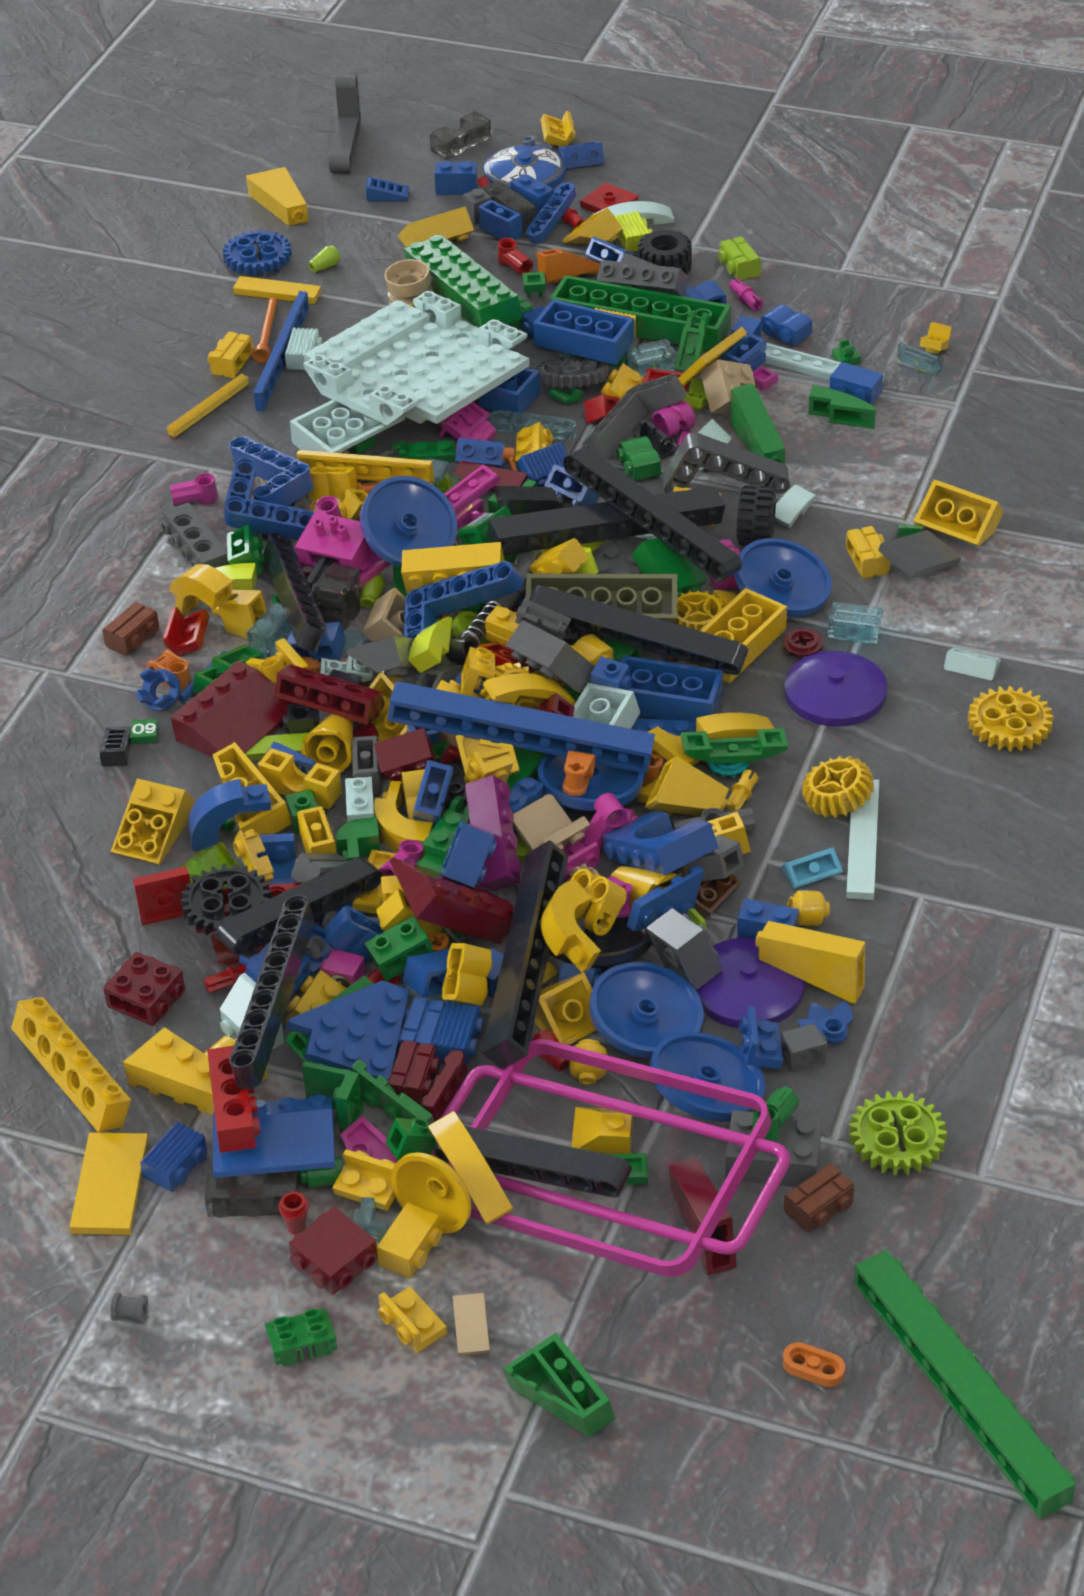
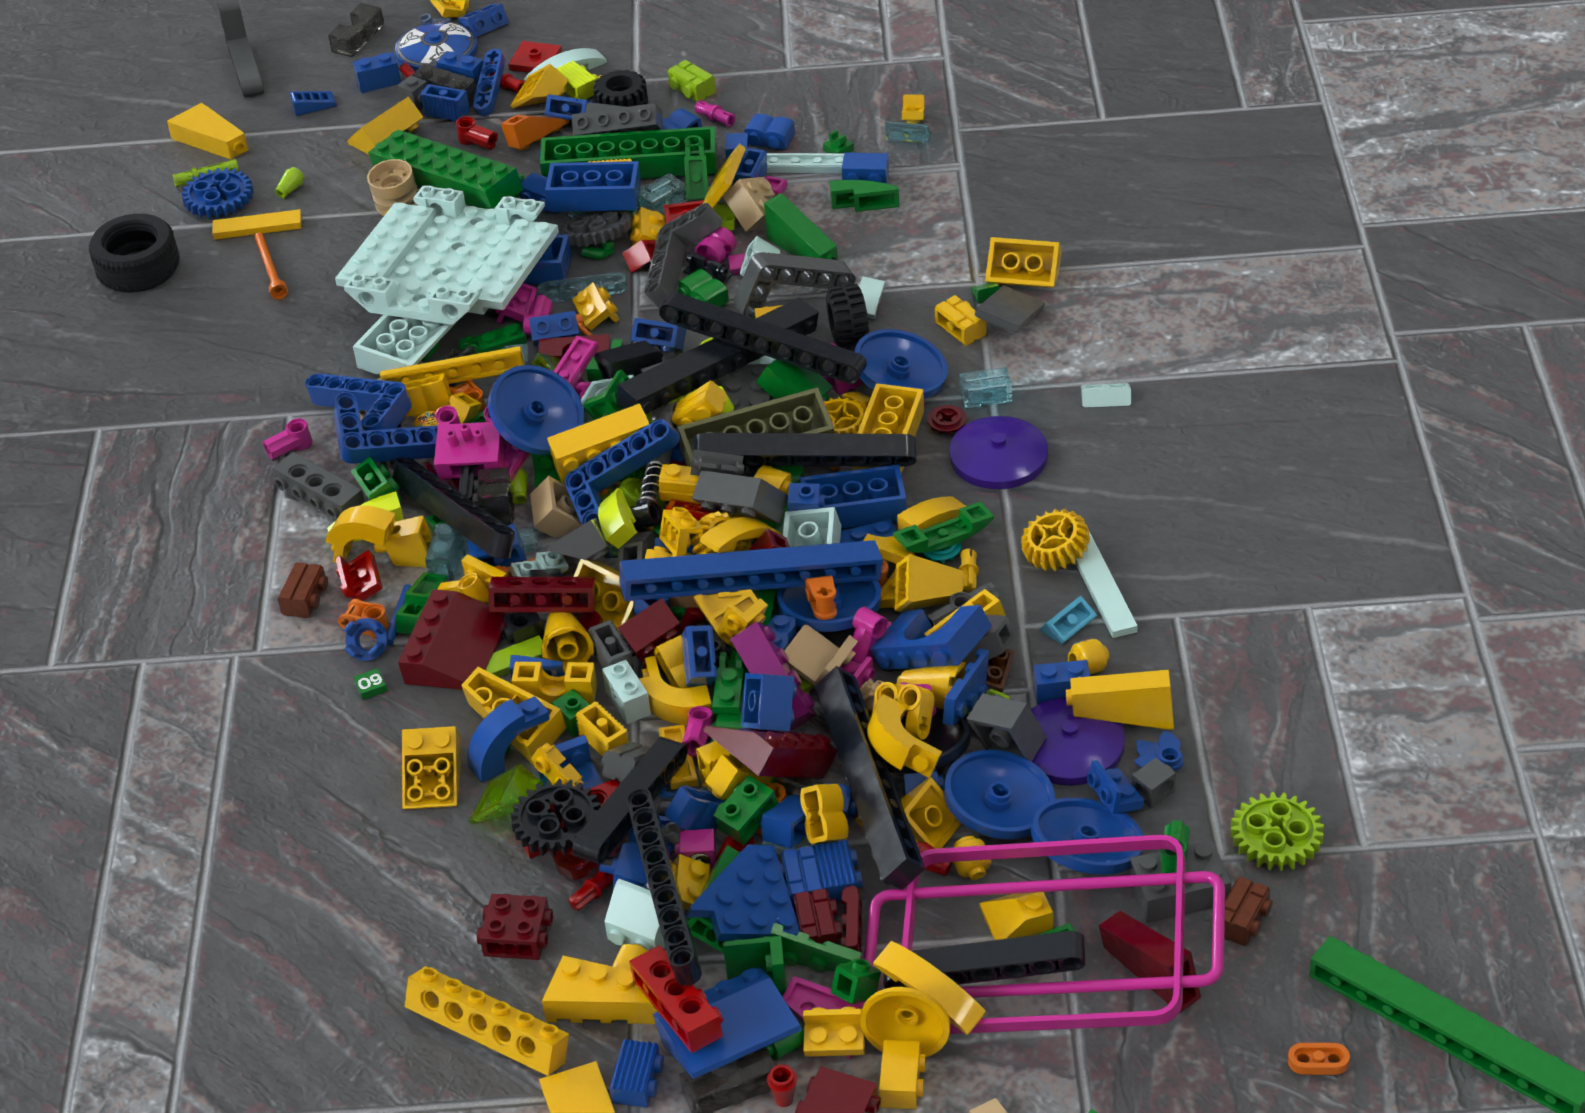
camera: 20 degrees left, 0 degrees up
(115, 746) = (350, 706): black slope -> none
(153, 286) = (139, 270): none -> black tyre
(161, 895) = (487, 832): red plate -> none
(207, 405) = (252, 354): yellow axle -> none
(230, 231) = (181, 178): none -> lime pin
(230, 354) = (248, 298): yellow brick -> none
(277, 358) = (298, 282): blue tile -> none
(301, 342) = (319, 274): light aqua brick -> none
(358, 838) = (643, 721): green brick -> none
(366, 1219) = (850, 1066): clear light blue bracket -> none
(534, 283) = (510, 152): green tile -> none
(540, 462) = (618, 320): blue brick -> none
(1010, 718) = (1169, 434): yellow gear -> none

